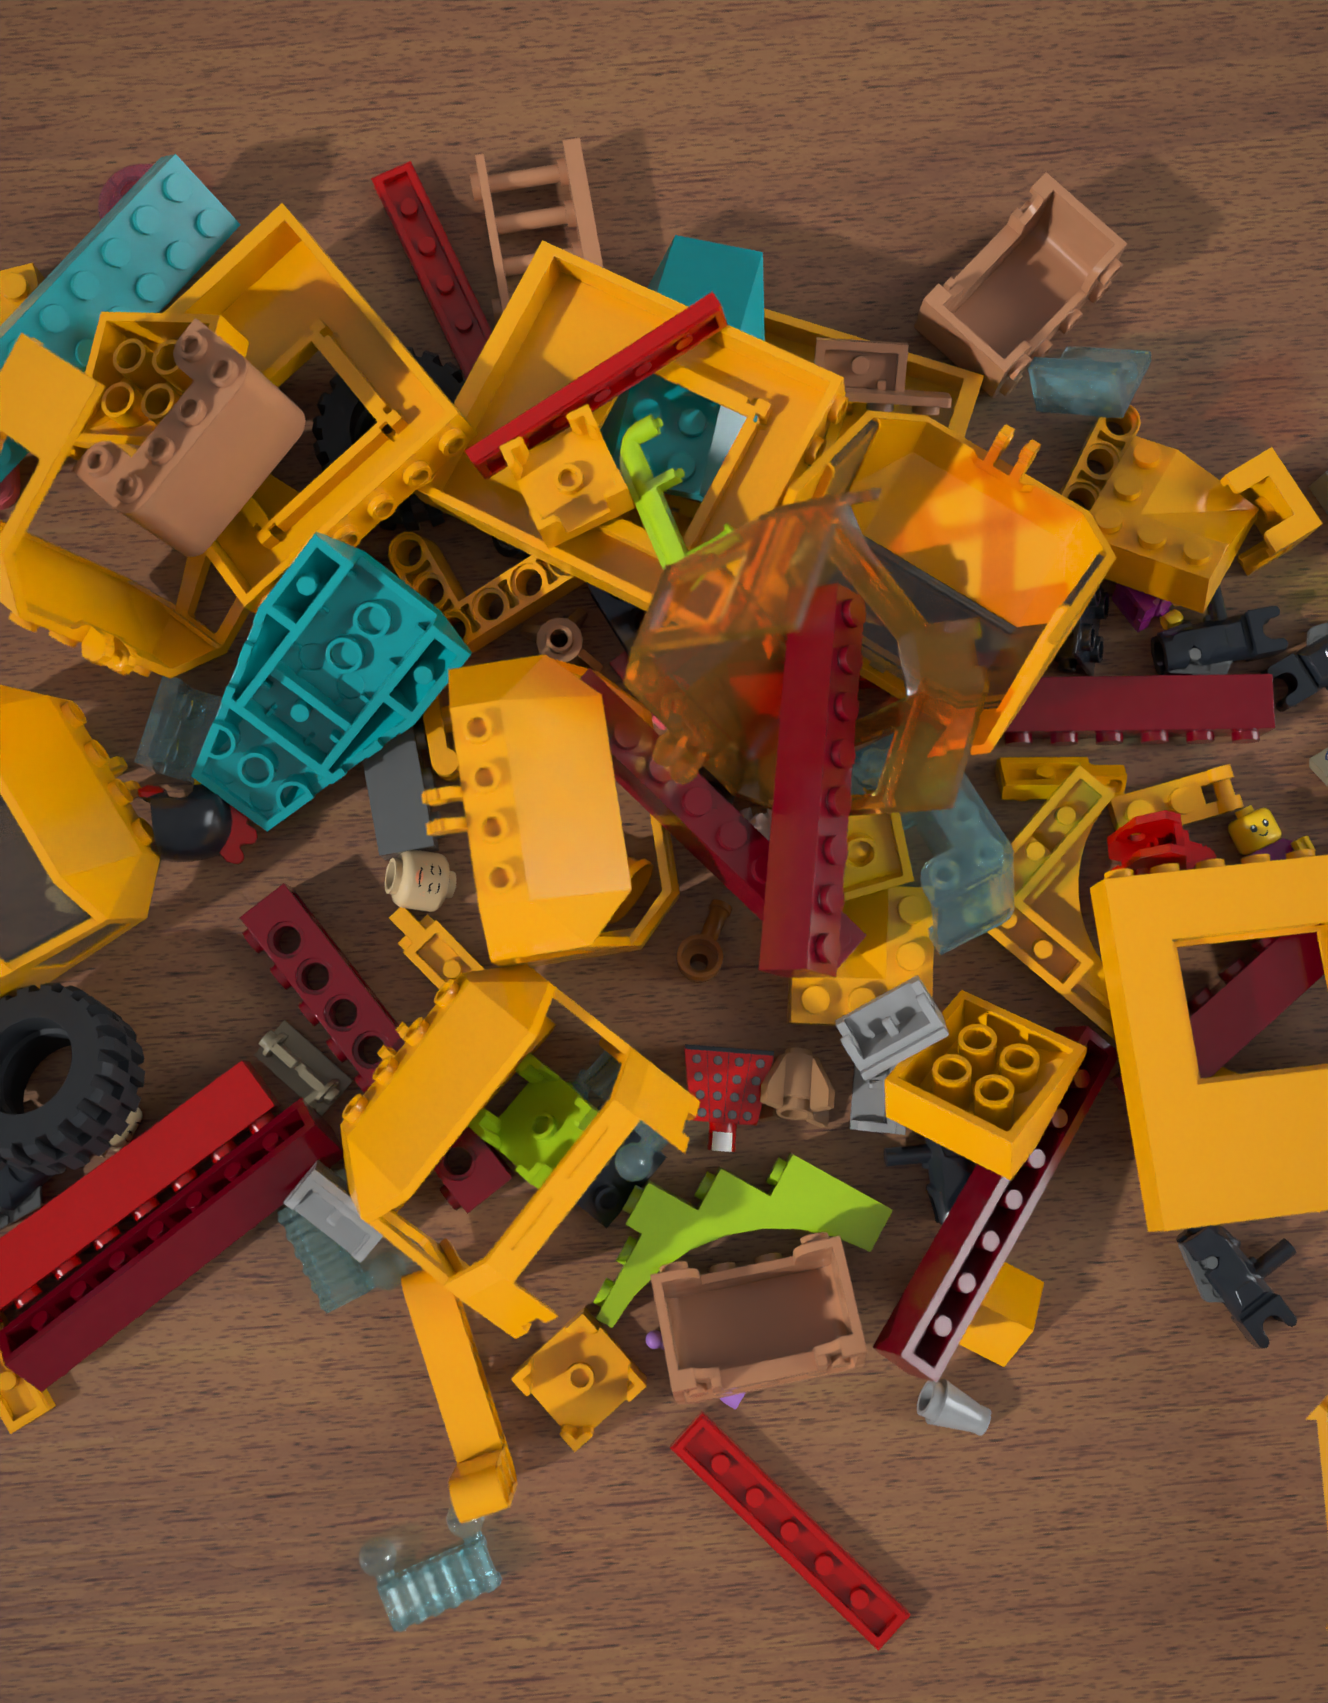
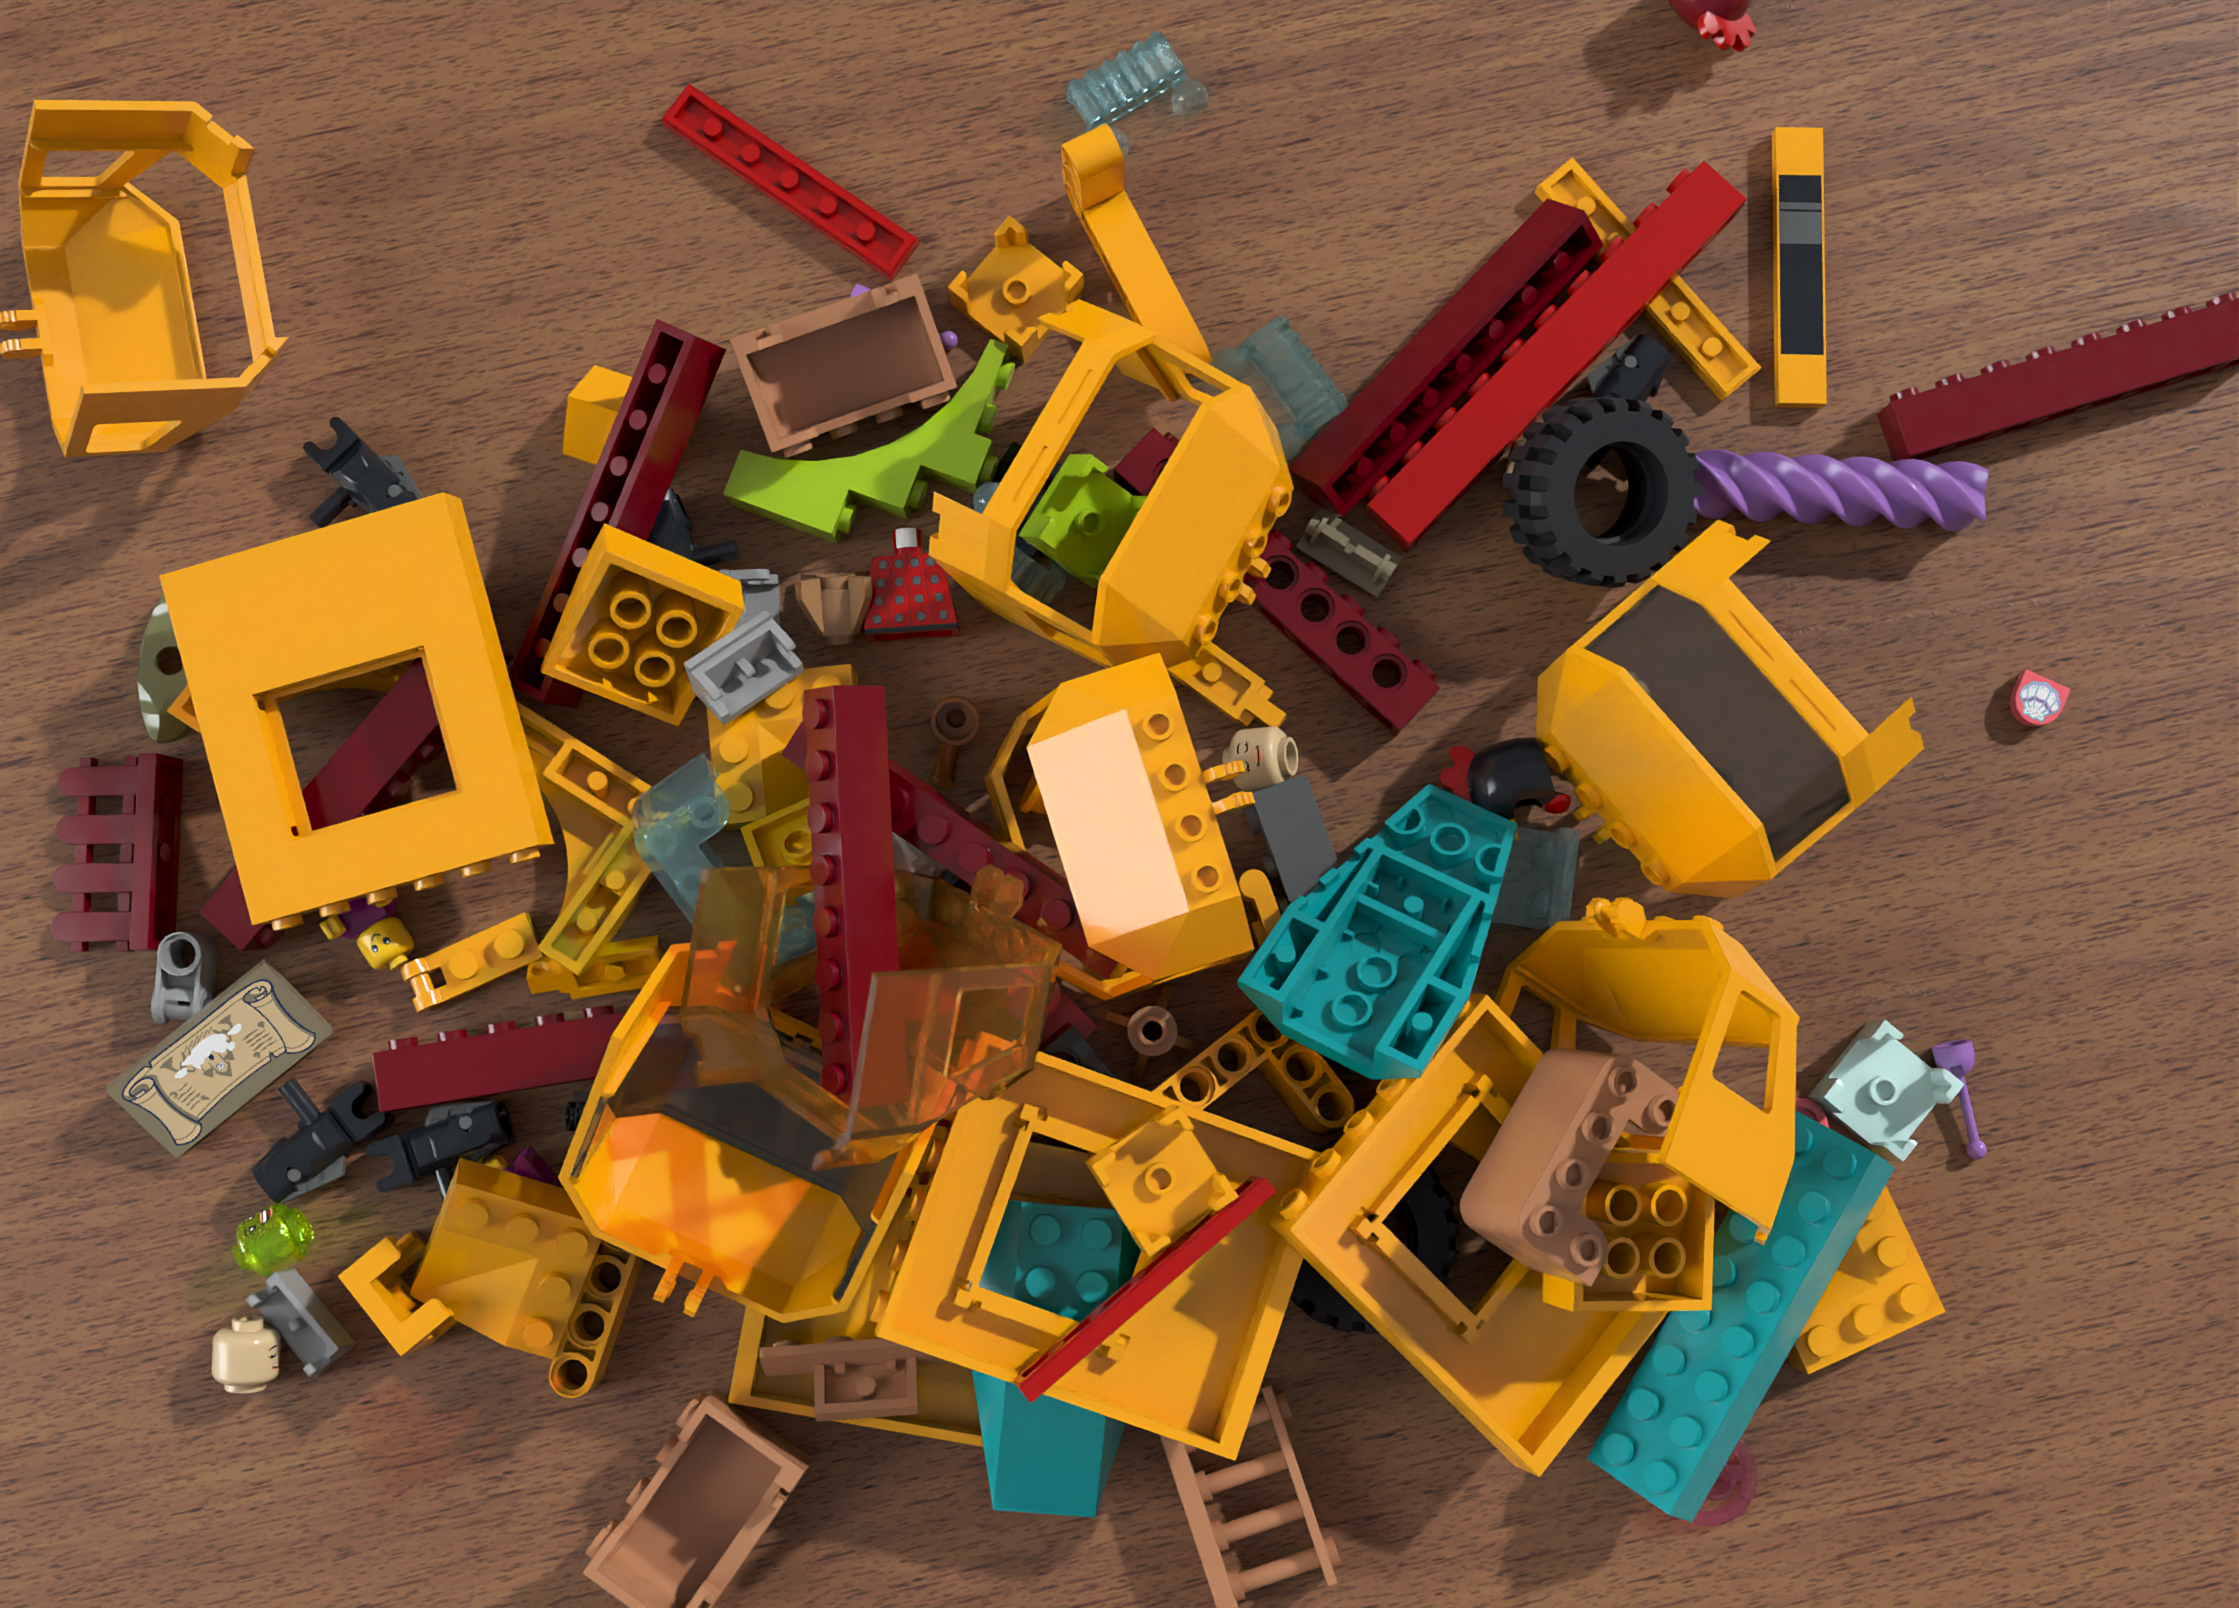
camera: 175 degrees right, 0 degrees up
(328, 1205) = (1296, 415): light grey hinge -> none
(434, 263) = (1357, 1443): red tile -> none
(649, 496) = (1059, 1155): lime piece -> none
(951, 1408) = (638, 314): light grey cone -> none
(1088, 381) = (608, 1418): clear light blue bracket -> none
(1159, 843) = (485, 901): red hinge -> none

